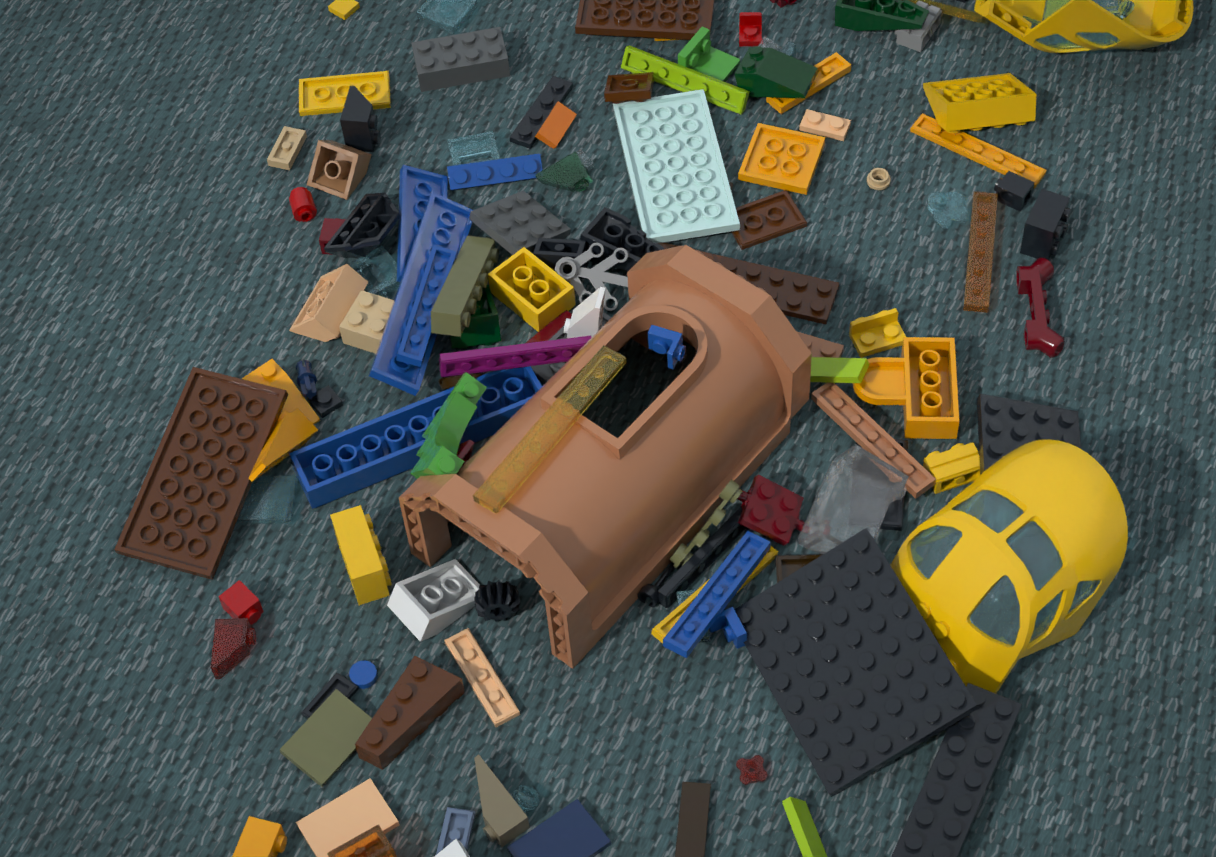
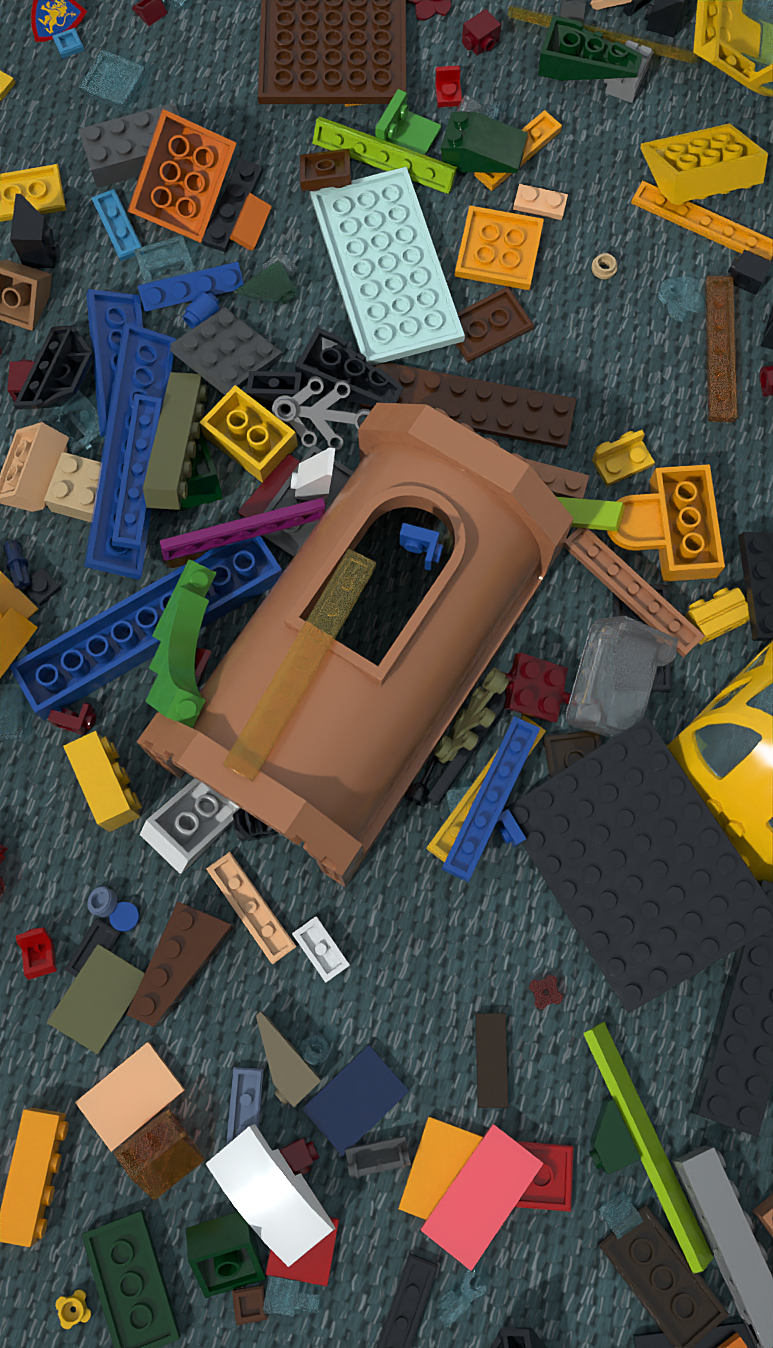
camera: 10 degrees left, 20 degrees up
(278, 693) = (37, 952): none -> red bracket
(331, 505) = (71, 721): none -> dark red bracket
(344, 659) = (102, 901): none -> sand blue tile
(434, 120) = (117, 224): none -> dark azure tile
(498, 83) = (181, 176): none -> orange slope
(501, 189) = (201, 309): none -> blue brick
(542, 715) = (321, 949): none -> white plate

